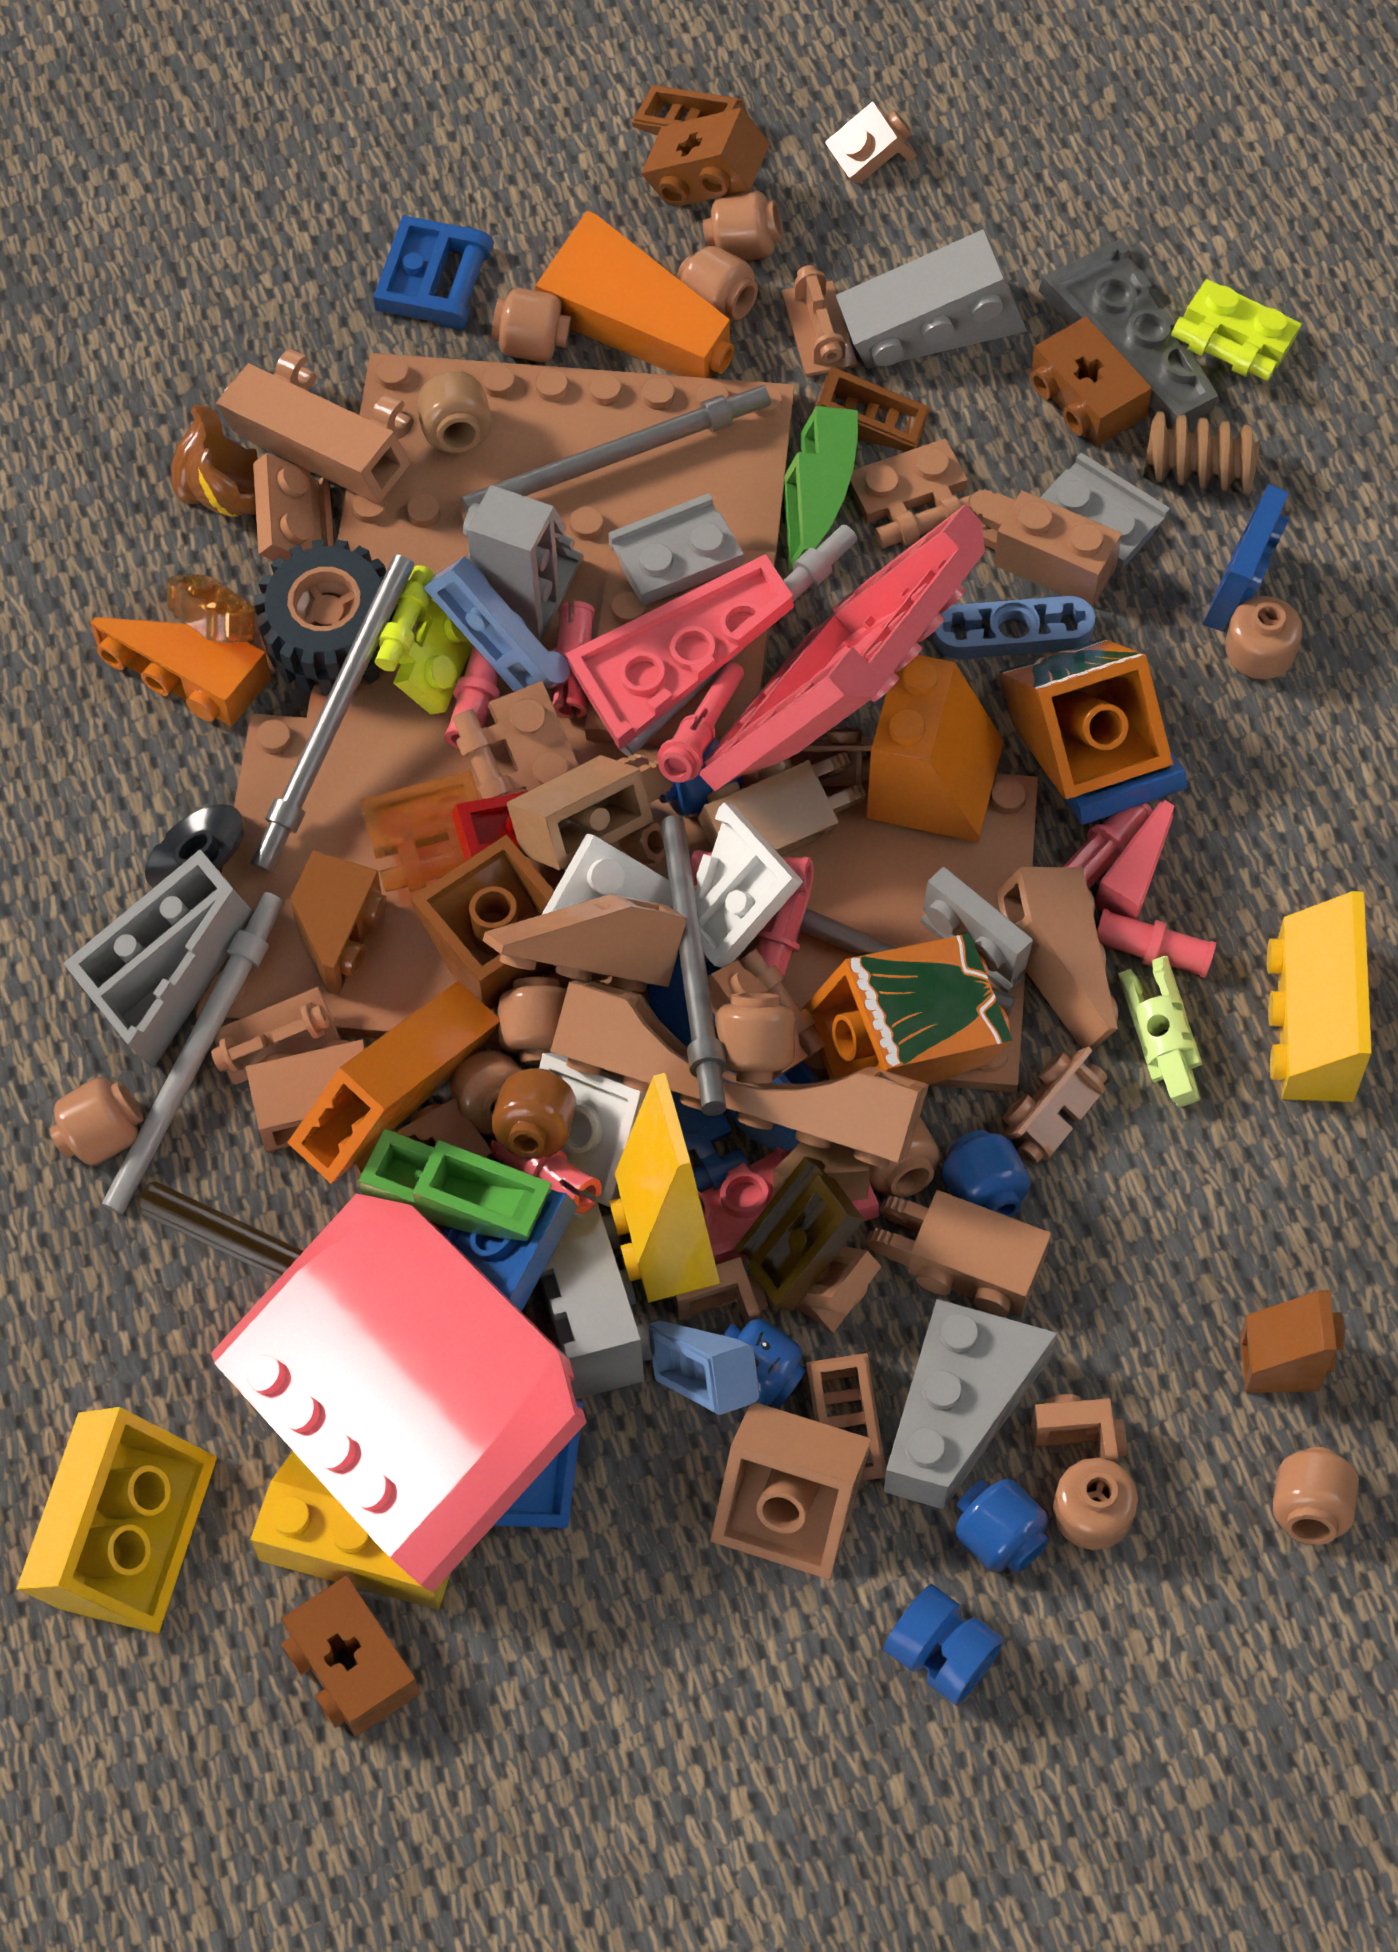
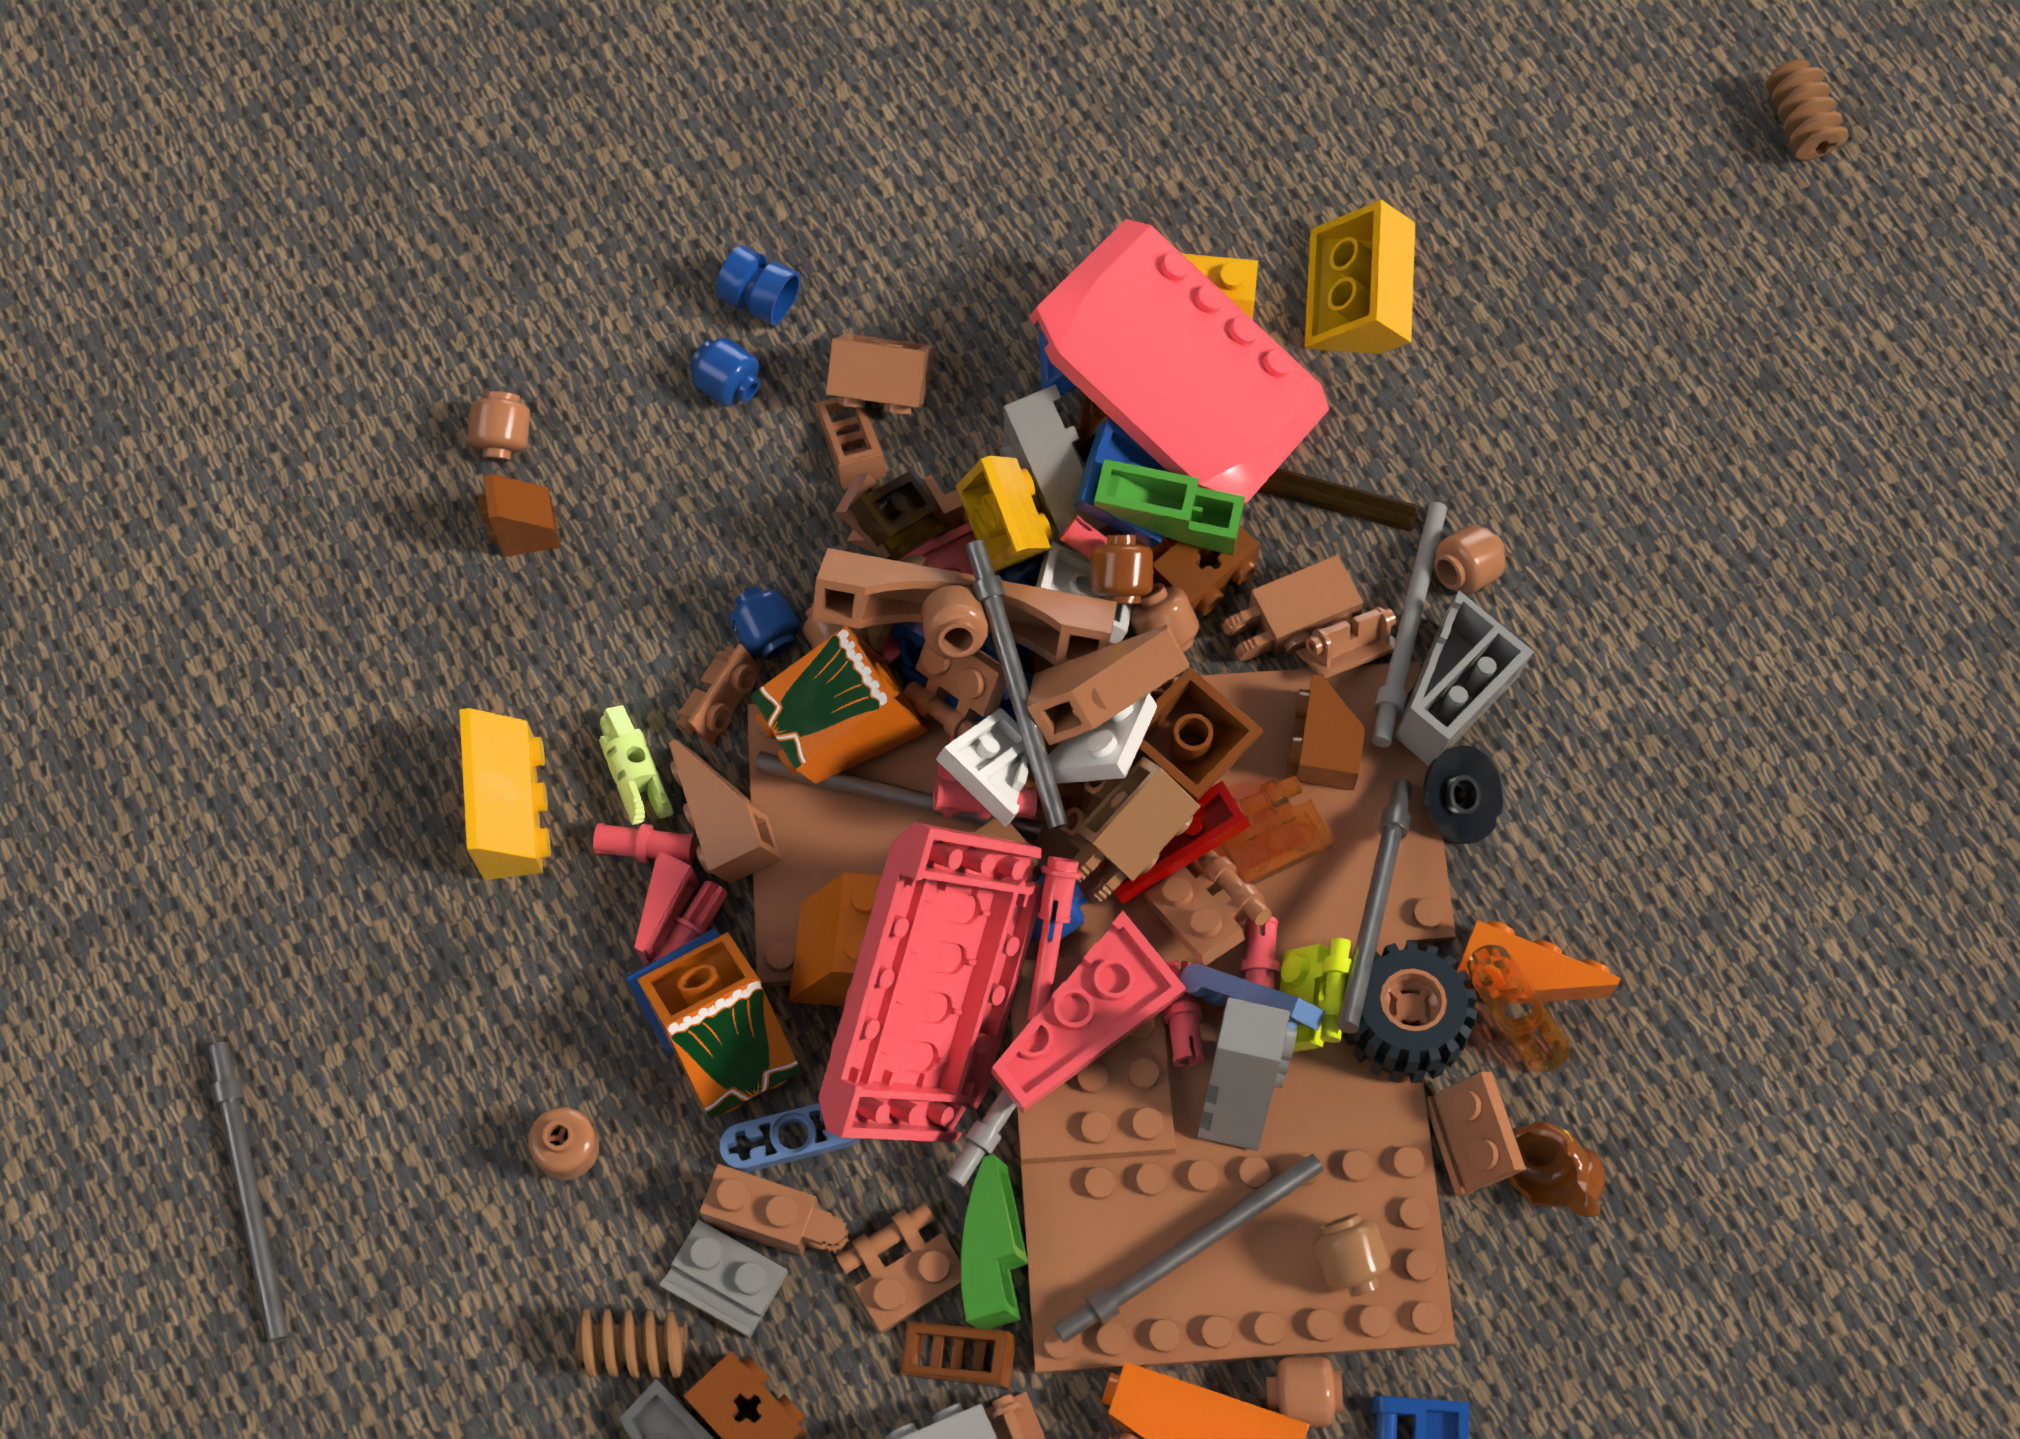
camera: 170 degrees right, 5 degrees up
(316, 433) = (1483, 1219): nougat brick -> none
(341, 1621) = (1174, 213): dark orange brick -> none
(391, 1080) = (1238, 586): orange slope -> none
(676, 549) = (1110, 1129): light grey plate -> none
(704, 1366) = (947, 418): medium blue slope -> none
(775, 1360) = (921, 451): blue head -> none
(958, 910) = (807, 806): light grey plate -> none
(960, 1397) = (764, 450): light grey wedge -> none
(965, 1251) = (765, 557): nougat hinge -> none
(1072, 1421) = (677, 450): nougat bracket -> none
(1095, 1503) = (659, 391): nougat head -> none
(1249, 558) = (582, 1208): blue plate -> none

